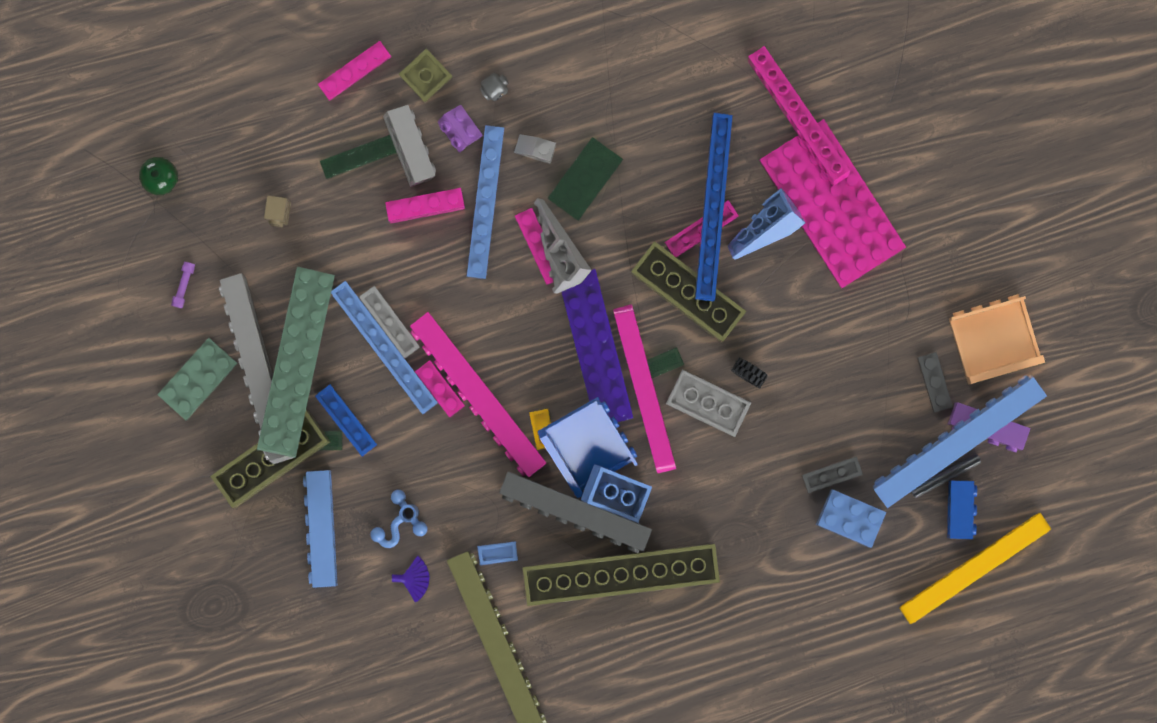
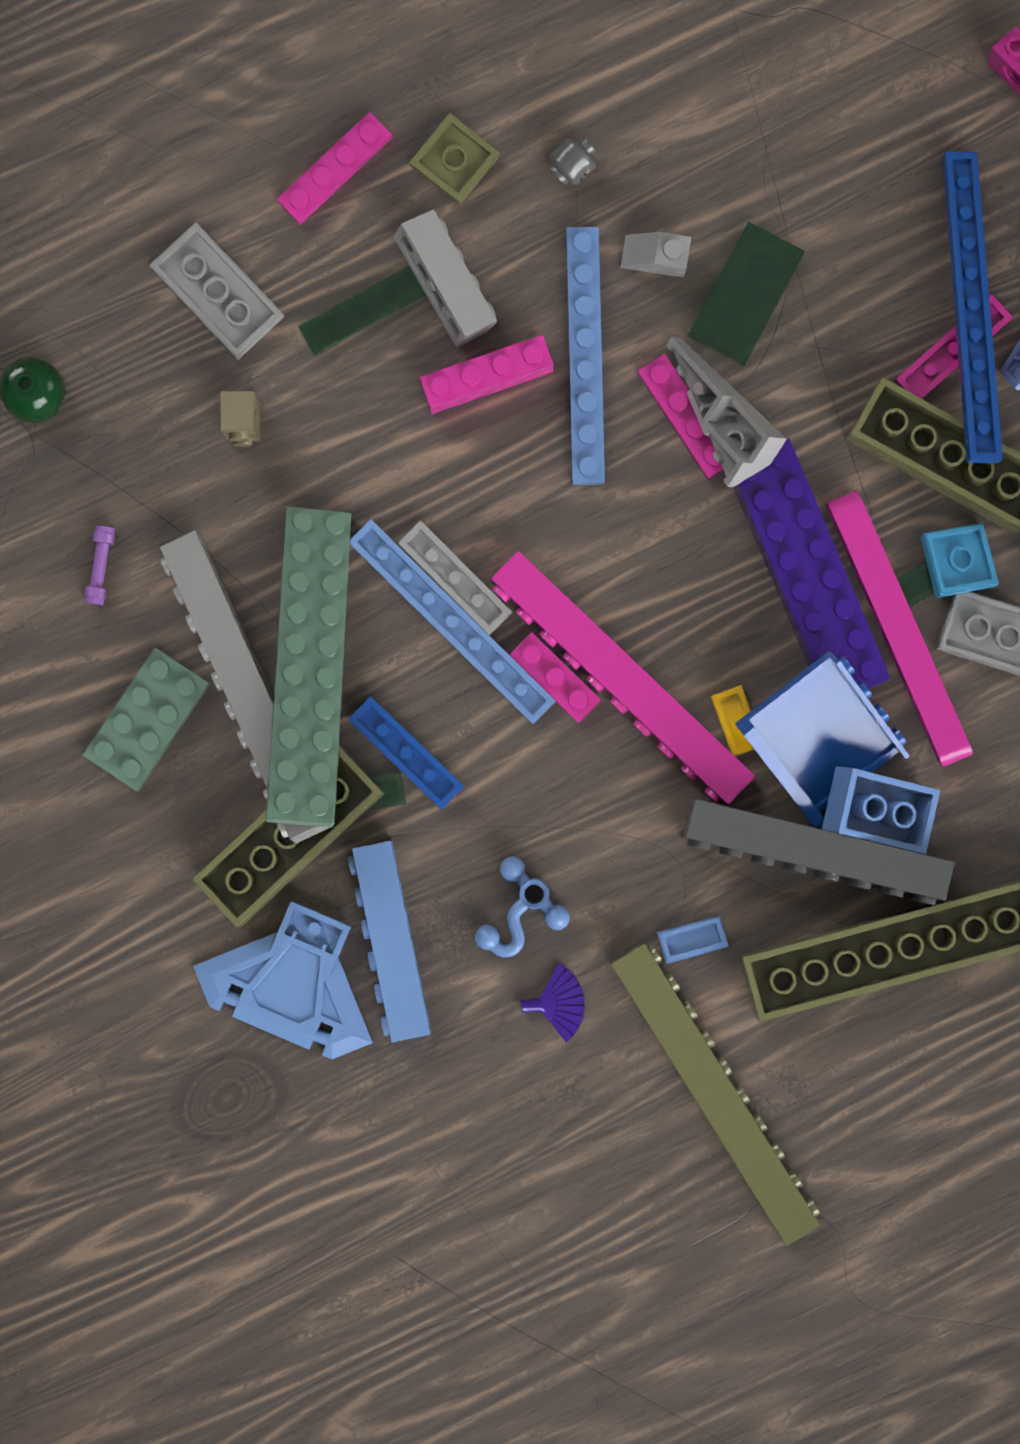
camera: 10 degrees left, 0 degrees up
(260, 545) = (291, 983): none -> medium blue plate
(275, 133) = (216, 290): none -> light grey tile
(459, 128) = (523, 239): medium lavender bracket -> none
(686, 354) = (959, 560): none -> dark azure tile

